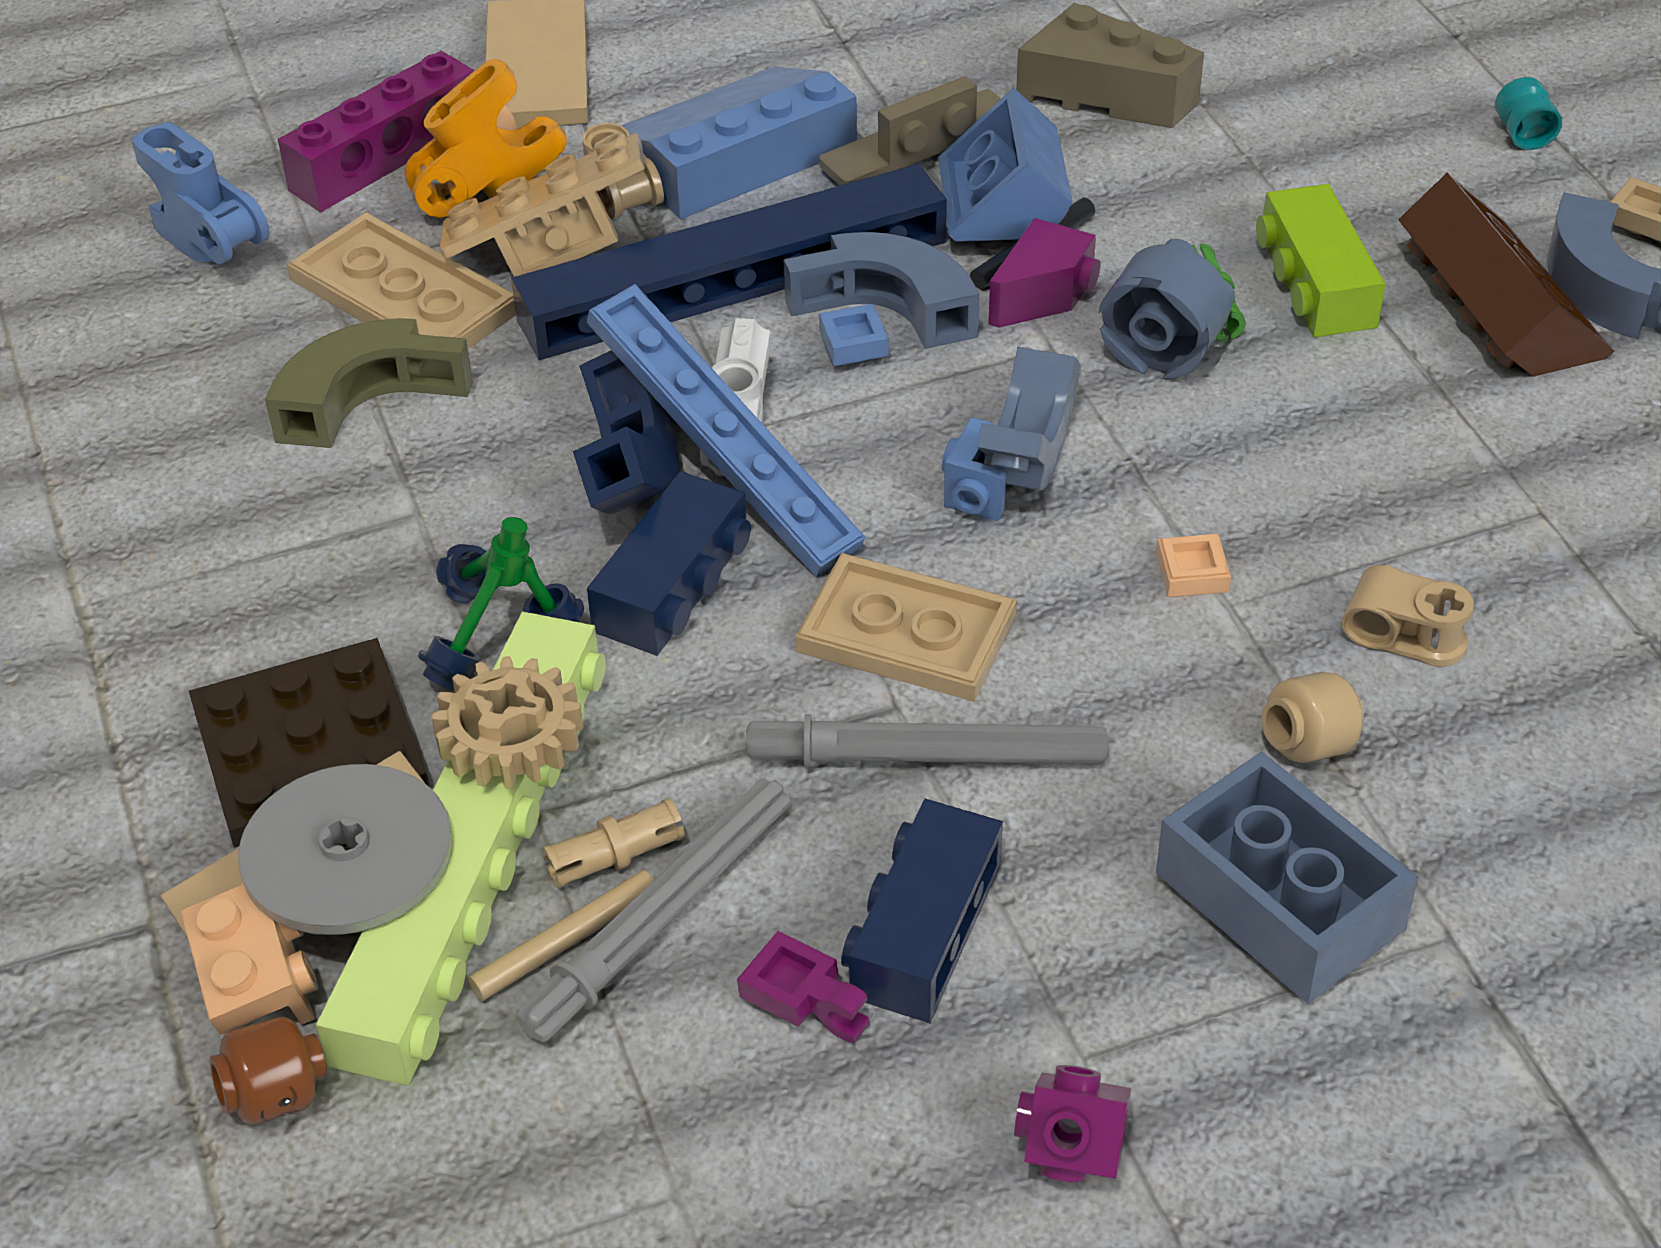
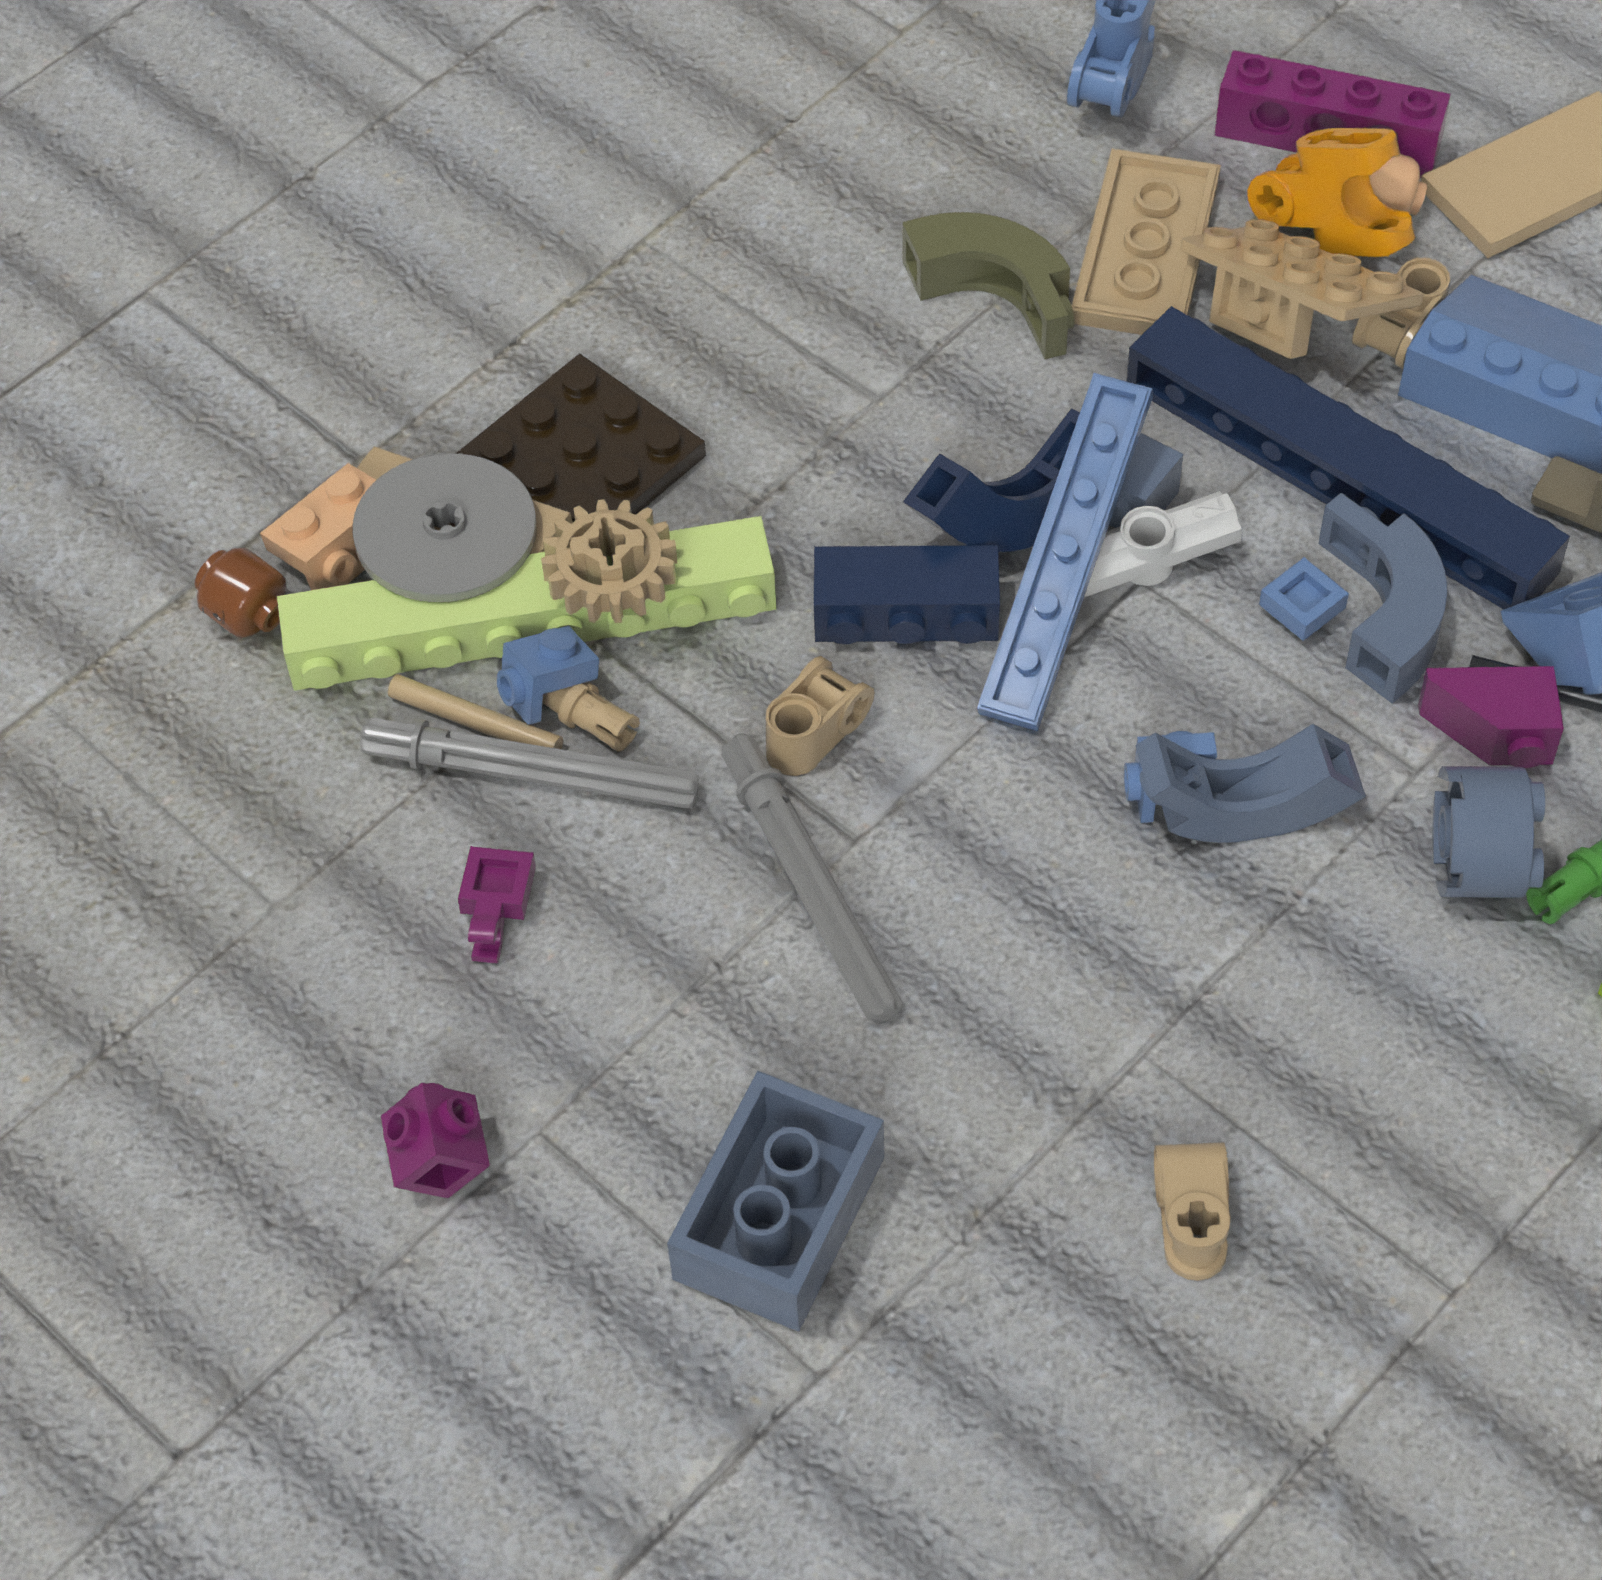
camera: 65 degrees right, 10 degrees up
(475, 575) = (799, 467): plant -> none
(570, 845) = (541, 666): none -> medium blue bracket
(755, 672) = (813, 717): none -> tan piece
(906, 626) = (951, 806): tan tile -> none
(924, 909) = (614, 948): dark blue brick -> none
(1193, 565) = (1170, 1001): light nougat tile -> none
(1313, 717) = (1003, 1165): tan head -> none

